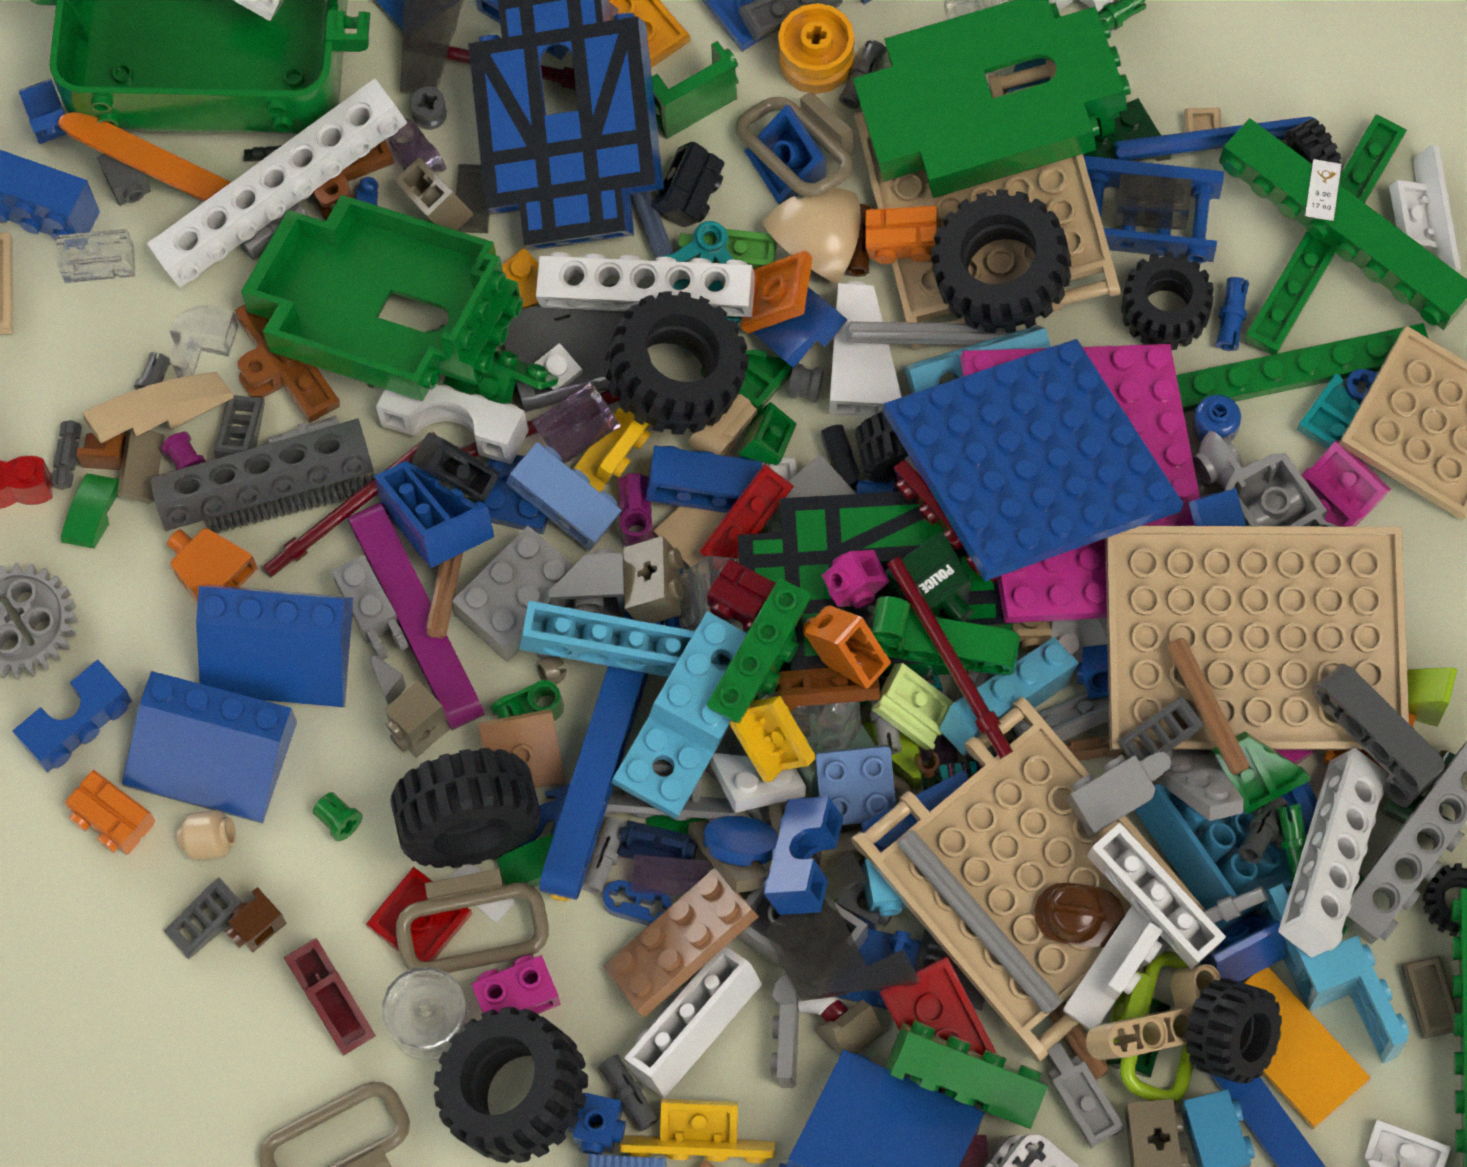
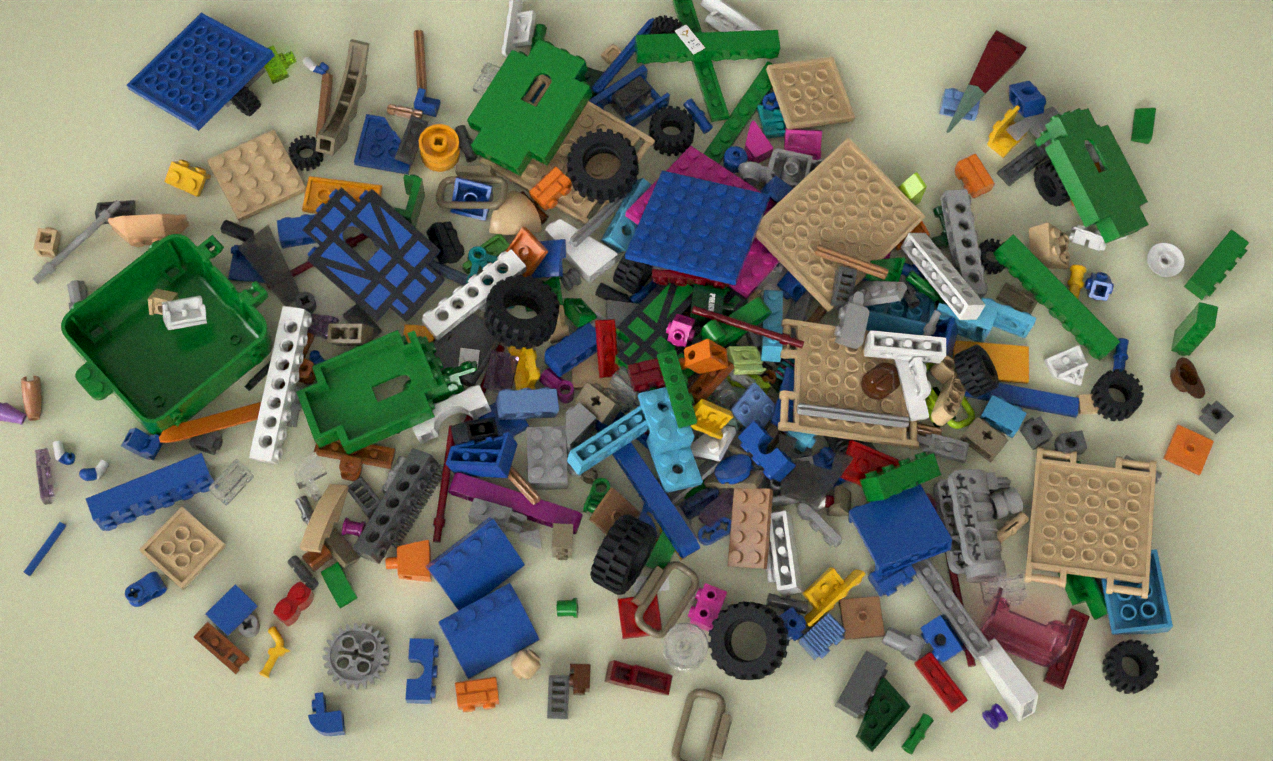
camera: 55 degrees left, 0 degrees up
(1270, 426) = (757, 145): none -> dark pink slope
(1382, 732) = (916, 217): dark grey beam -> none

